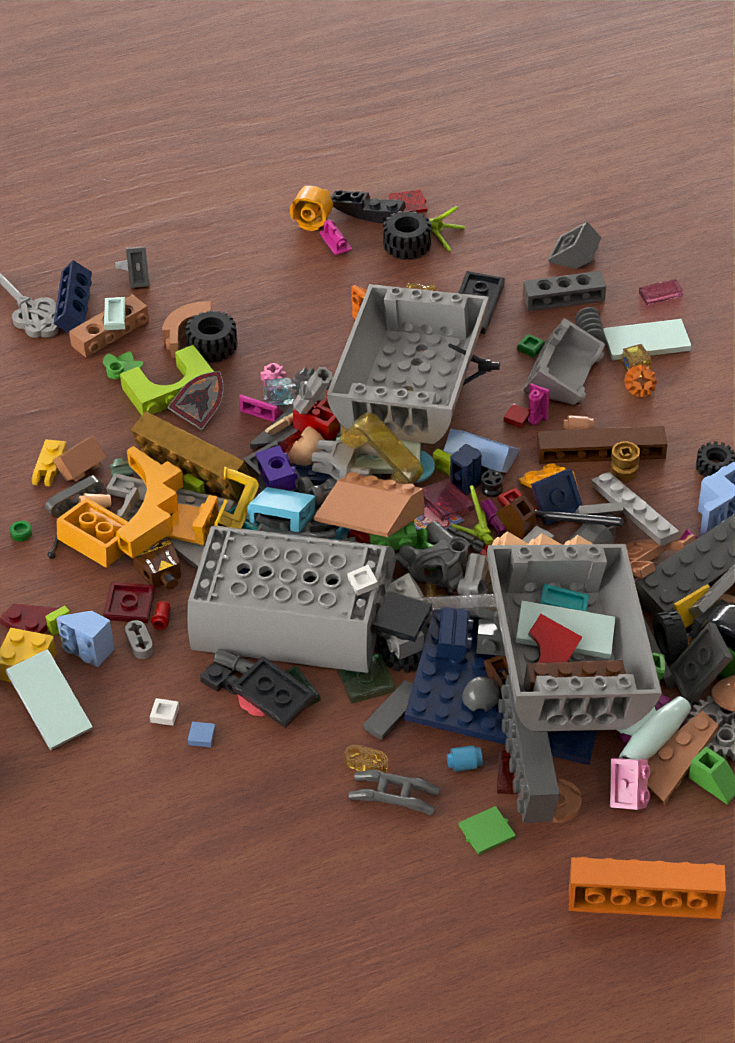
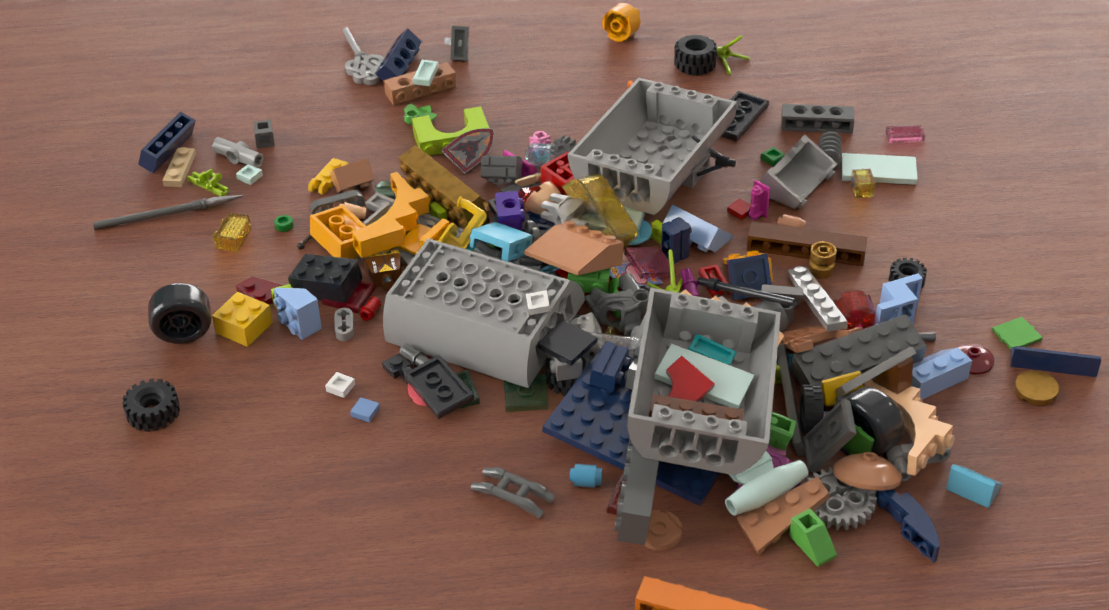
camera: 15 degrees right, 5 degrees down
(49, 699) = (245, 354): light aqua tile -> none
(100, 589) = (327, 277): none -> black brick
(175, 324) = (484, 89): nougat arch -> none
(212, 335) = (500, 103): black tyre -> none
(244, 417) = (501, 168): none -> dark grey brick
(312, 390) = (557, 149): light grey piece -> none
(334, 238) = (634, 49): dark pink hinge -> none
(361, 206) = (666, 28): black slope -> none
(366, 758) = (499, 458): clear yellow beam -> none
(390, 712) = (532, 426): dark grey tile -> none
(413, 200) = (710, 30): red piece -> none
(481, 694) = (615, 421): dark grey hair -> none
(487, 830) = (585, 542): bright green piece -> none
(491, 483) = (696, 257): black wheel -> none
(518, 517) = (706, 283): reddish brown slope -> none
(576, 247) = (840, 87): dark grey slope -> none
(629, 783) = (728, 527): bright pink bracket -> none
(635, 387) = (853, 203): orange gear -> none
(681, 513) = (856, 309): none -> clear red brick

